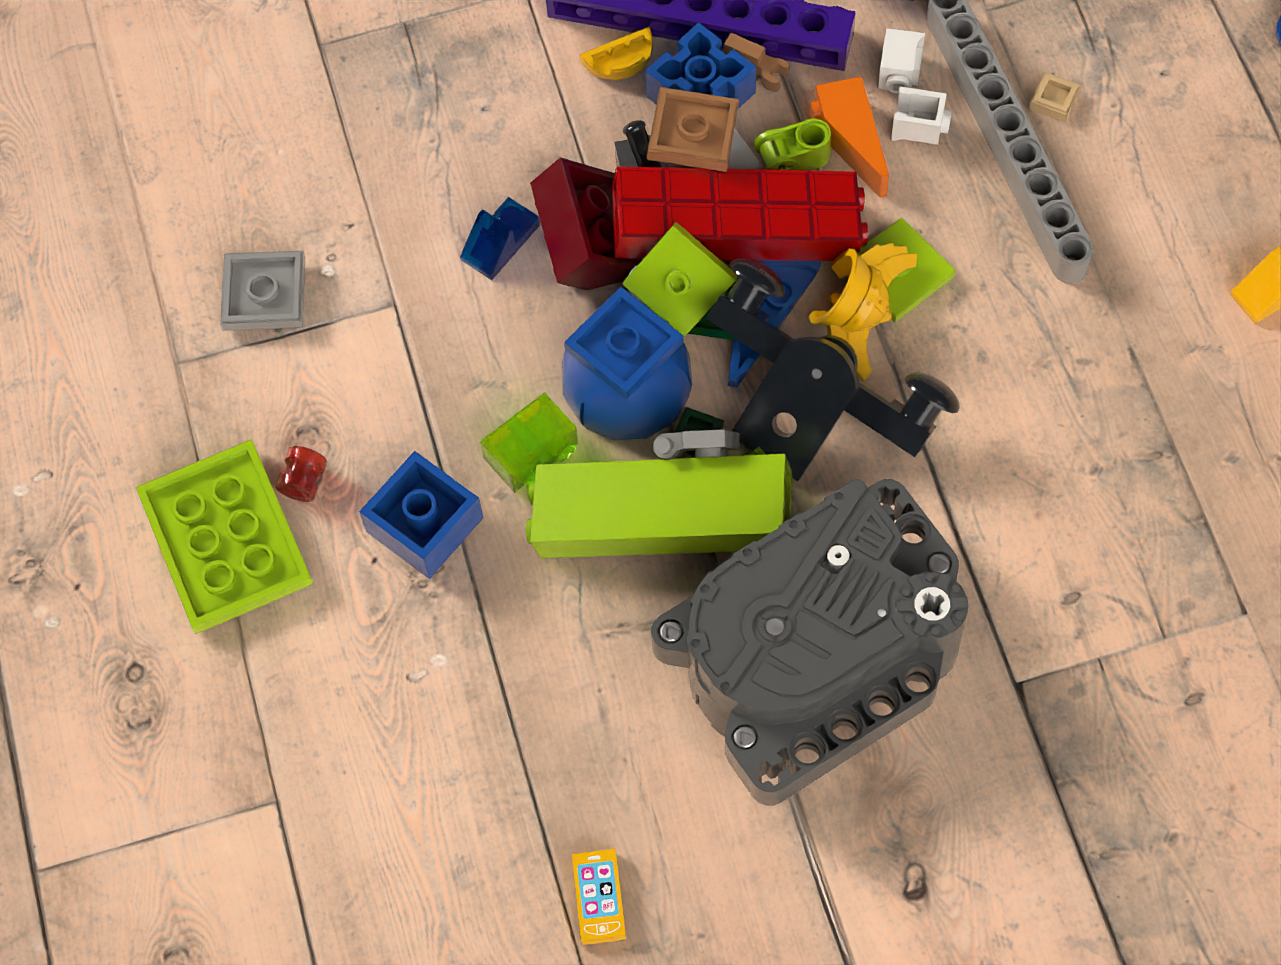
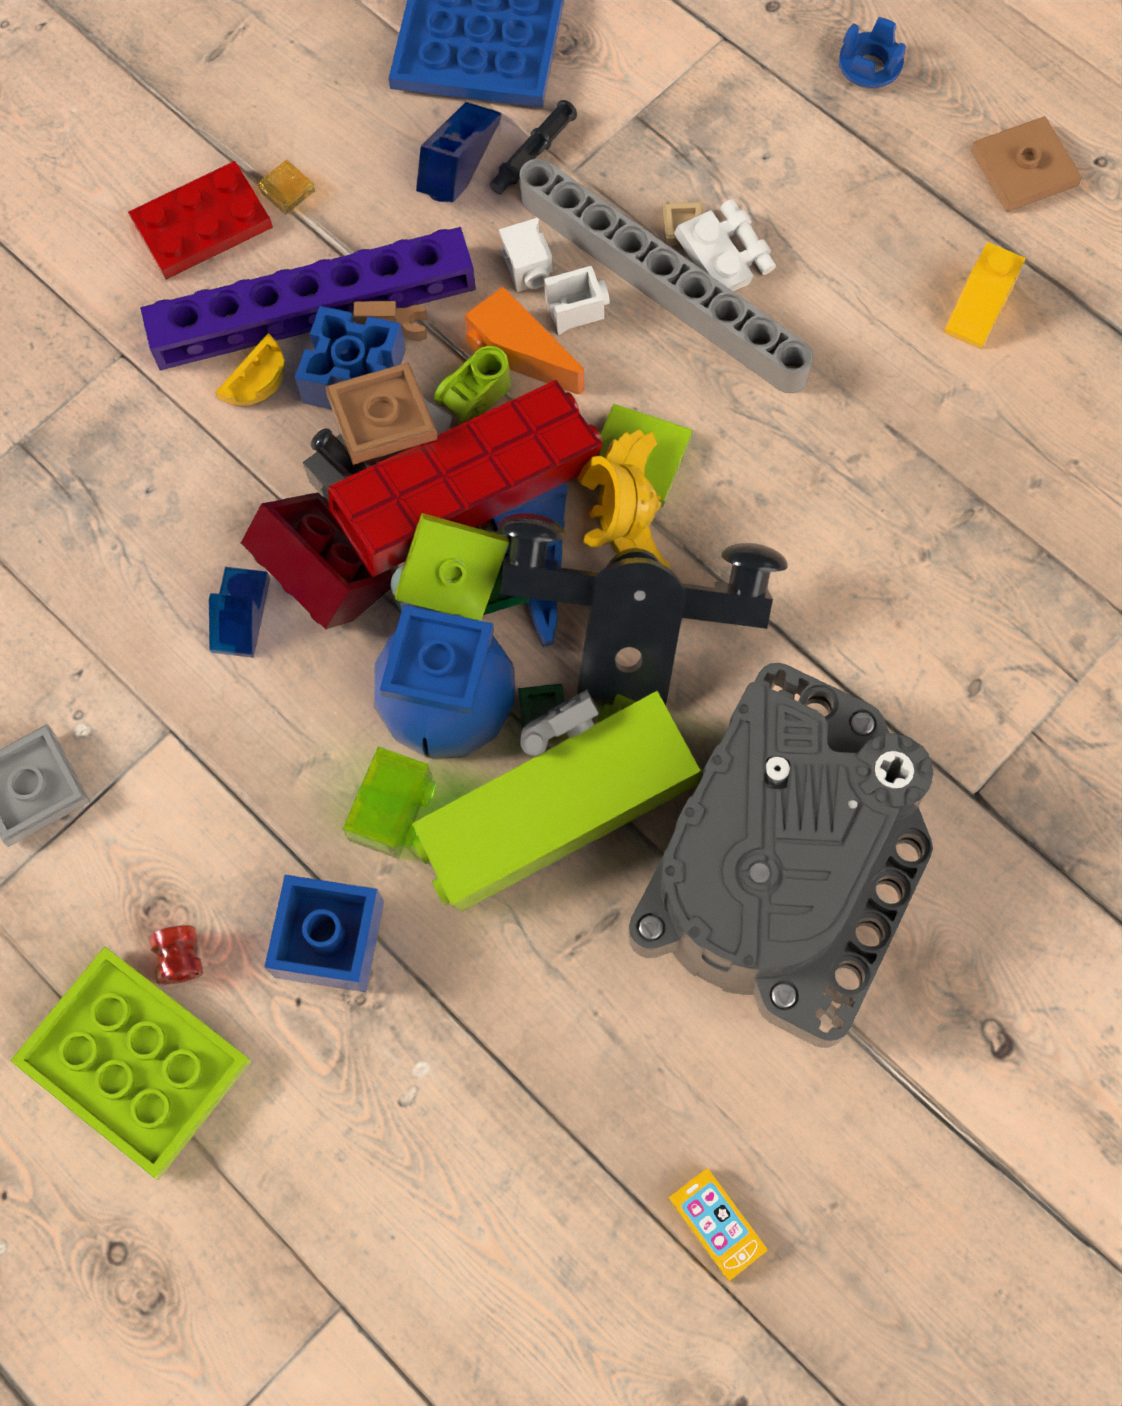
camera: 30 degrees left, 5 degrees up
(1063, 133) = (711, 249): none -> white plate

